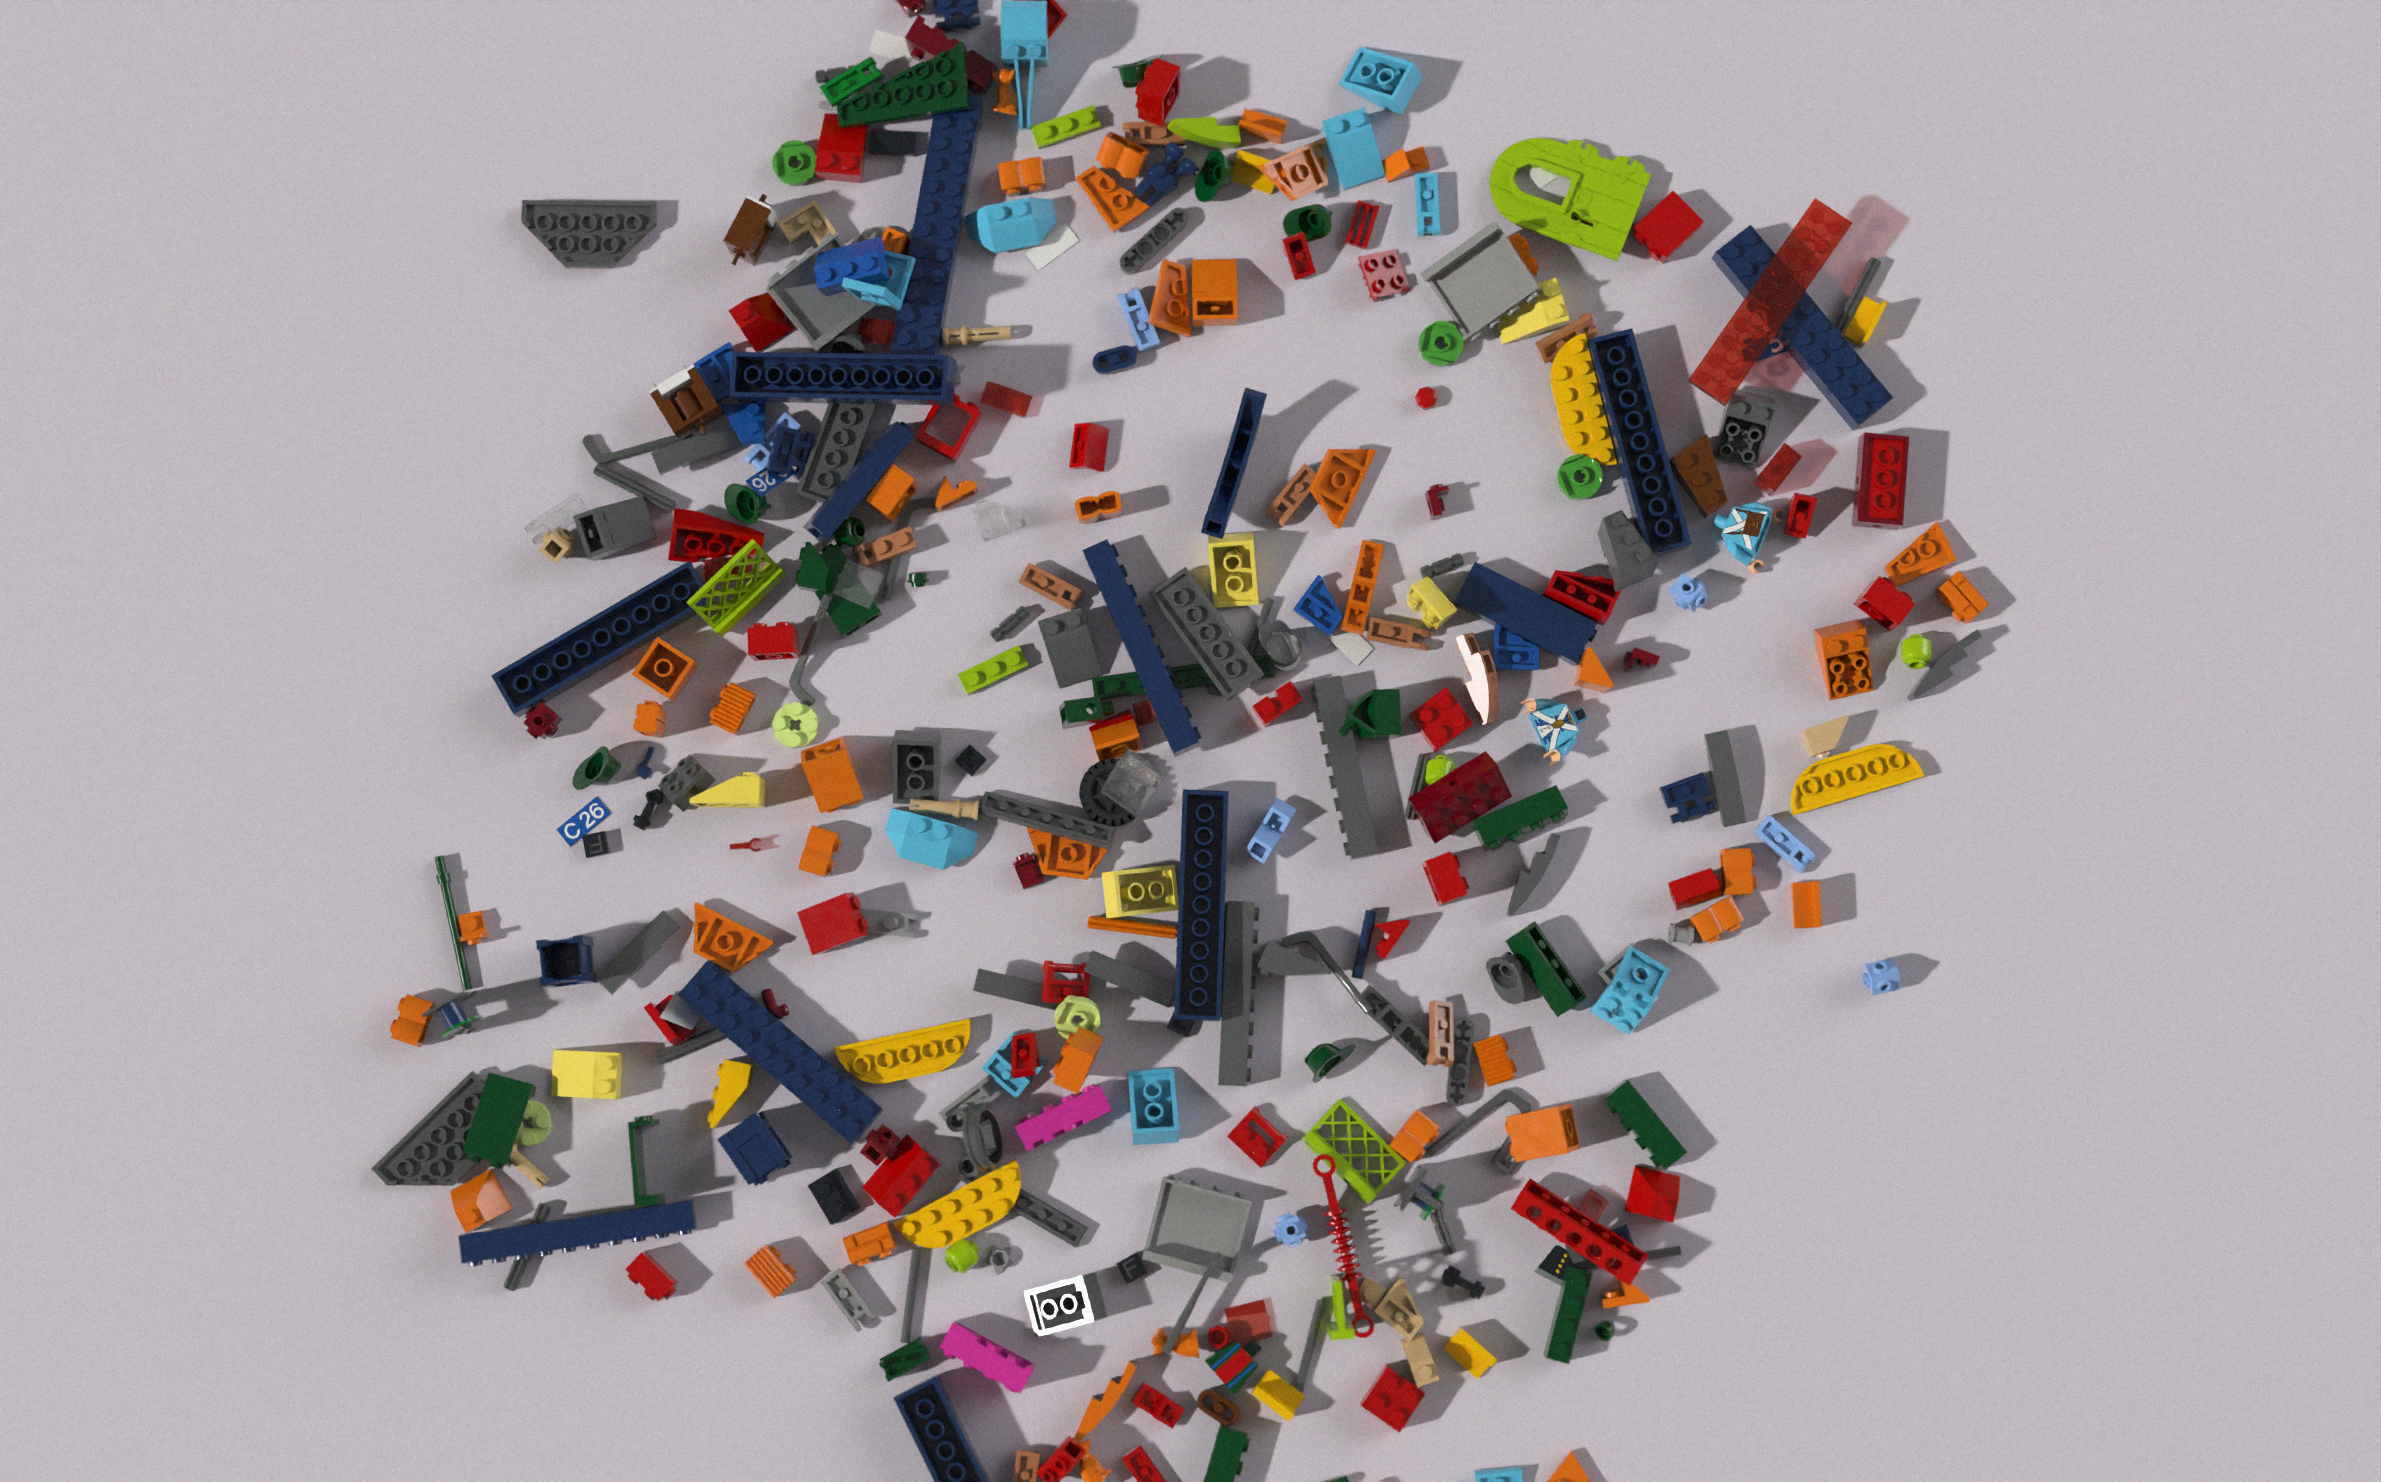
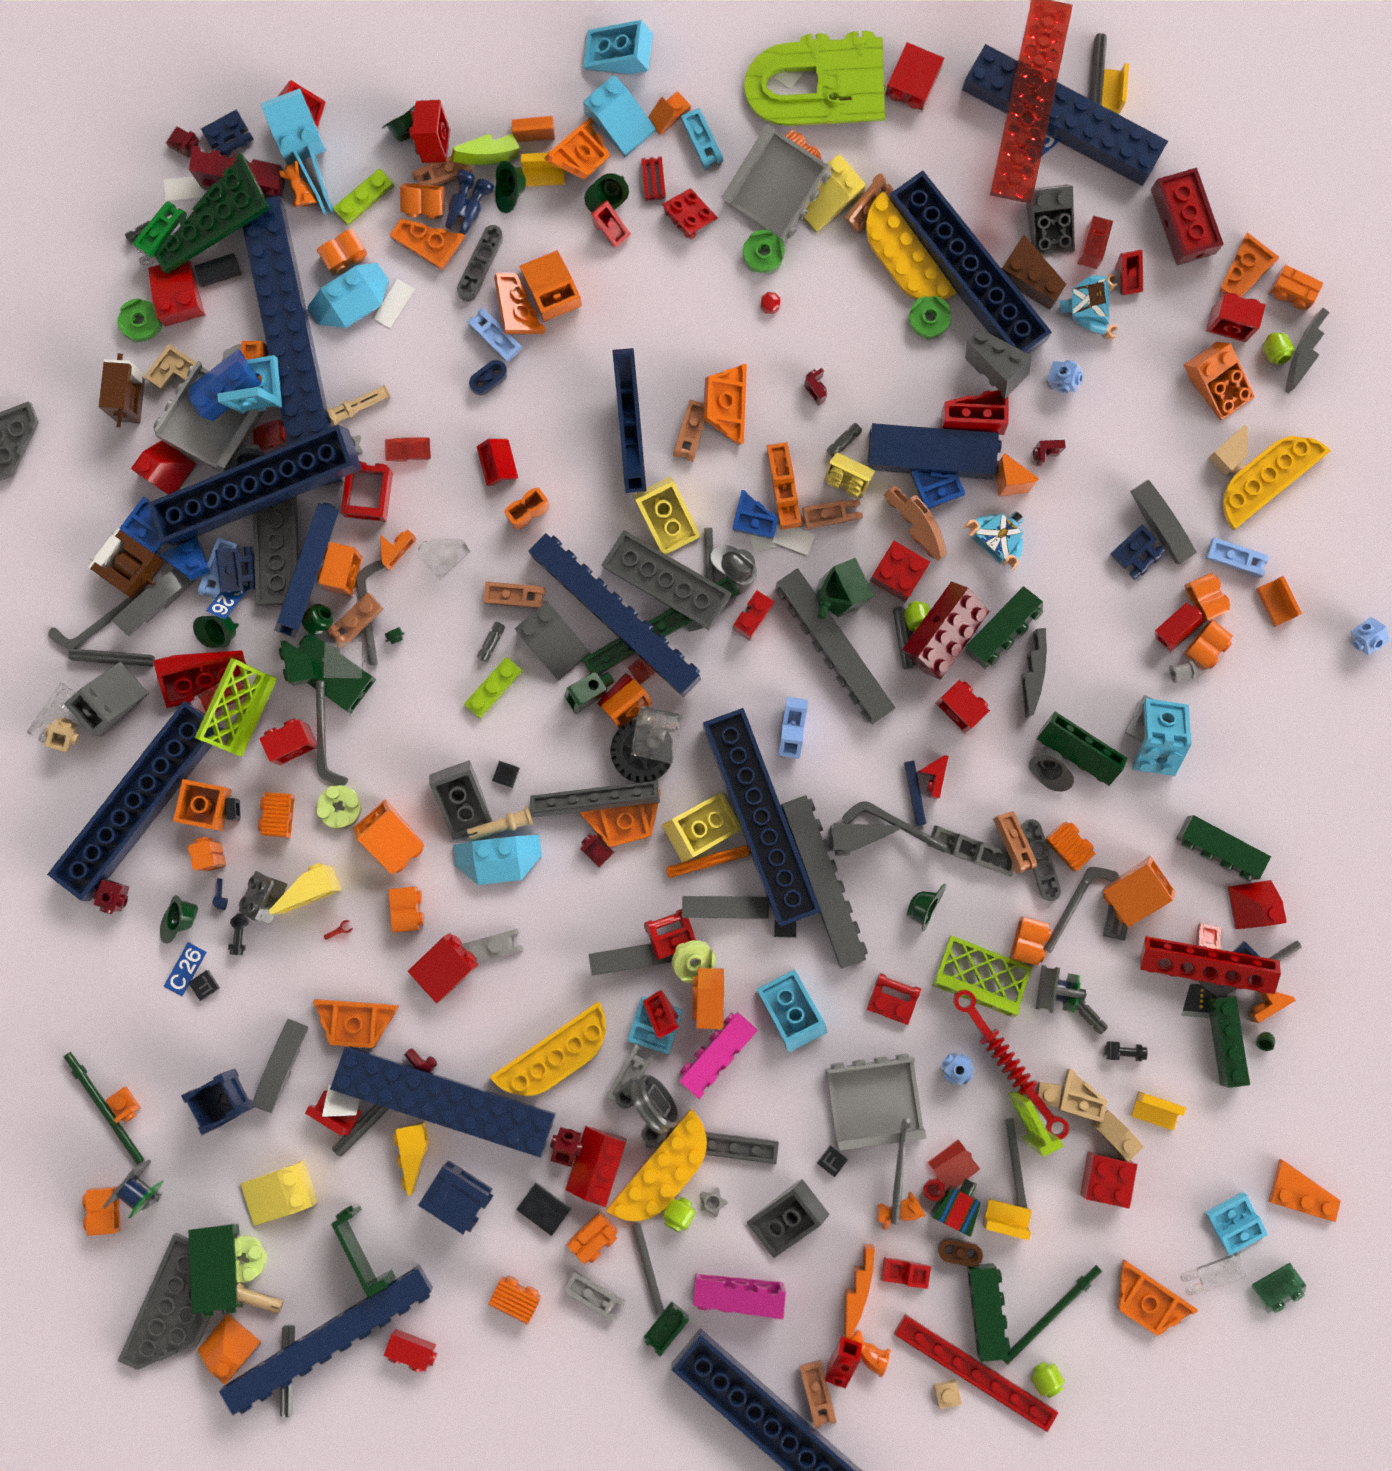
camera: 25 degrees left, 0 degrees up
(692, 685) = (233, 809): none -> black tile

